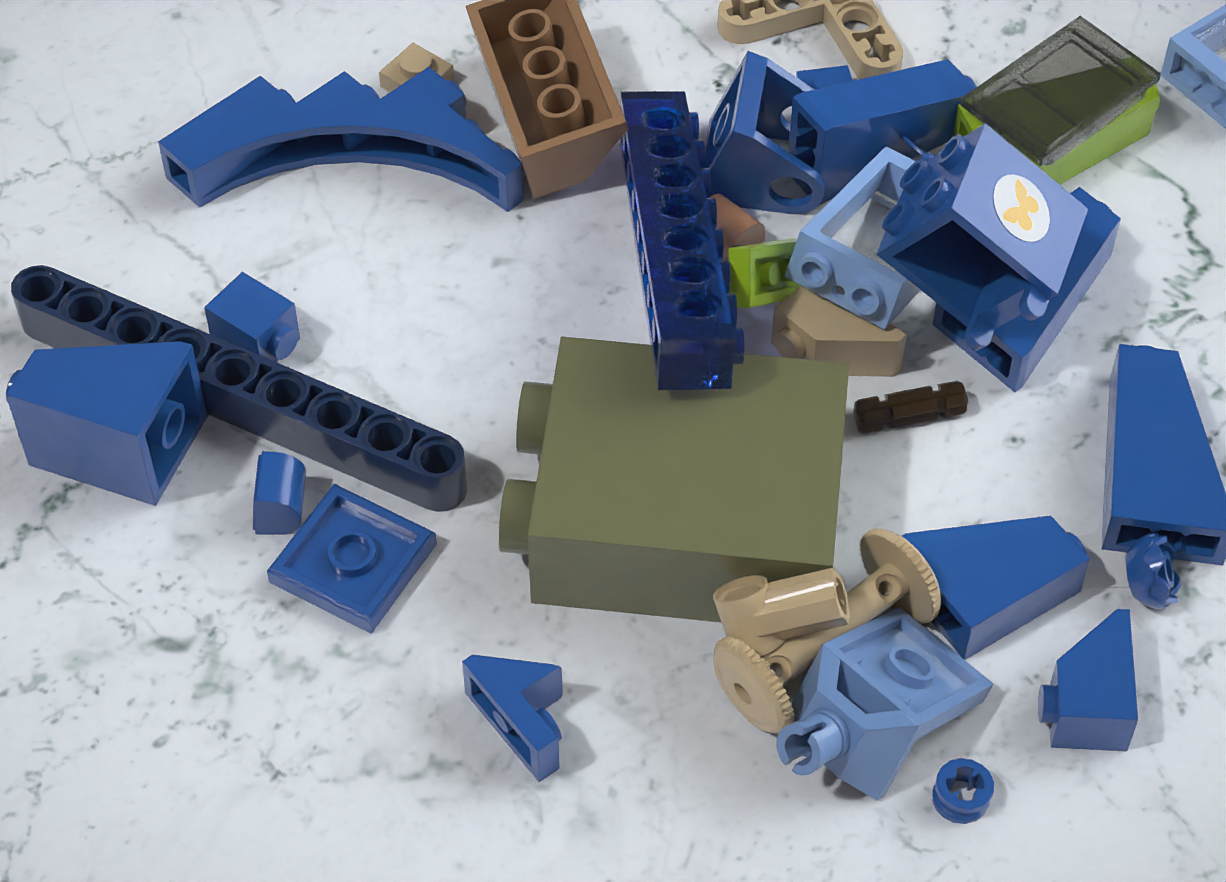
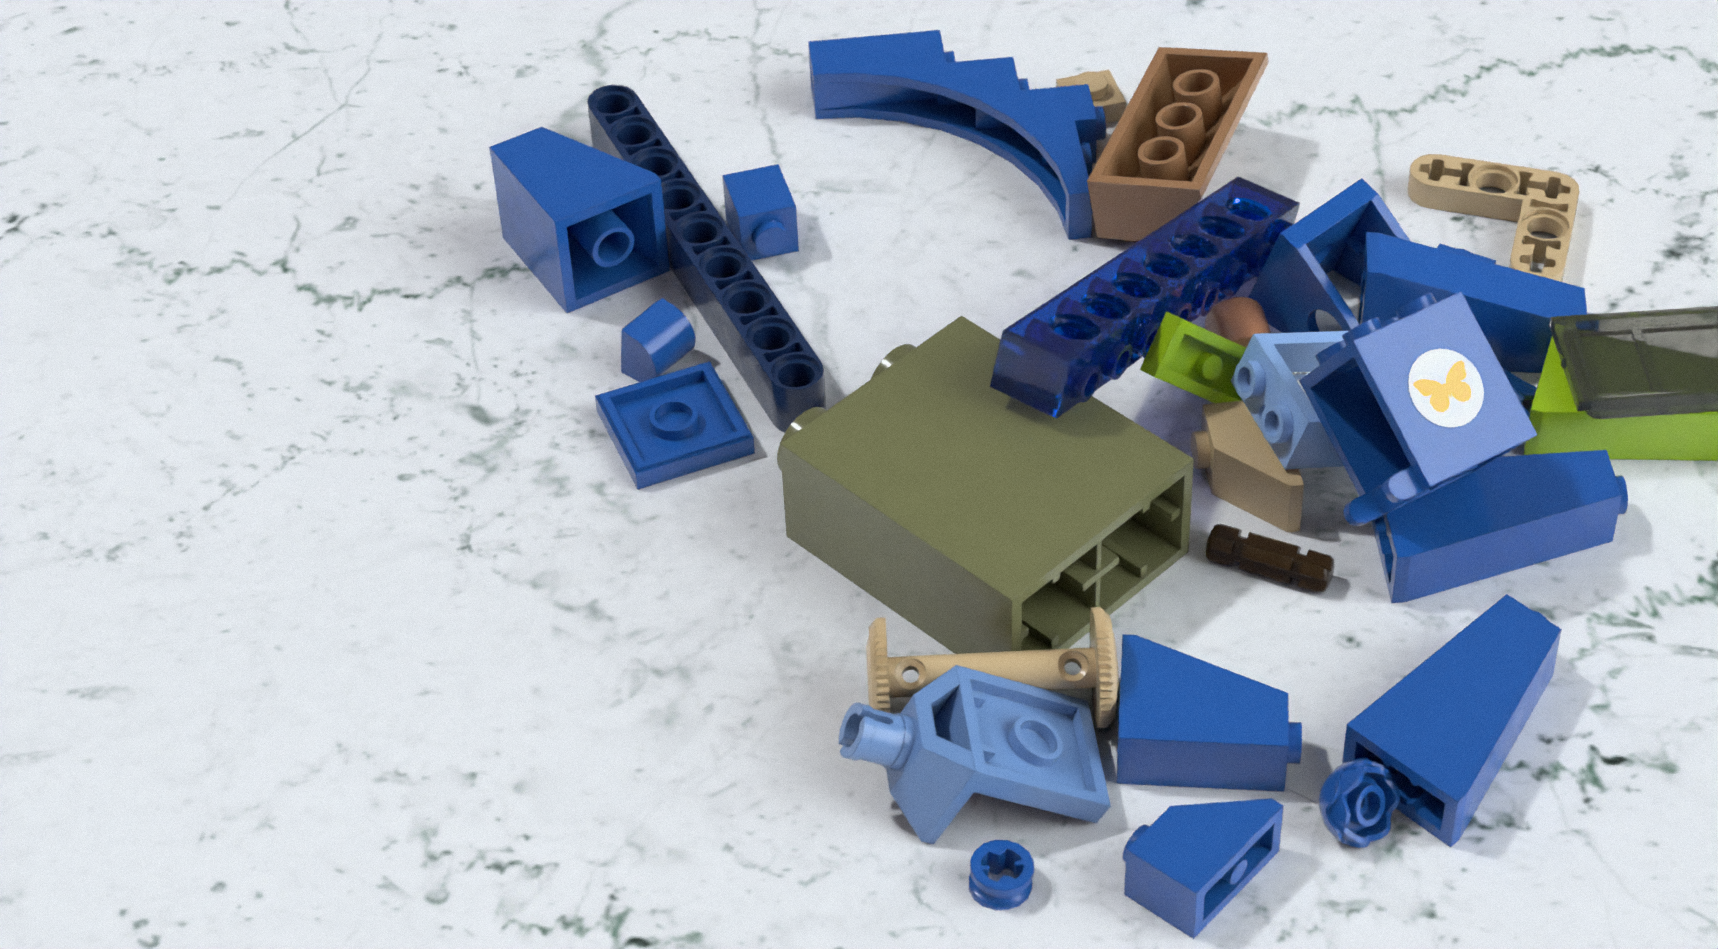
camera: 40 degrees right, 10 degrees down
(514, 702) = (688, 588): blue slope -> none
(772, 611) = (939, 621): tan piece -> none

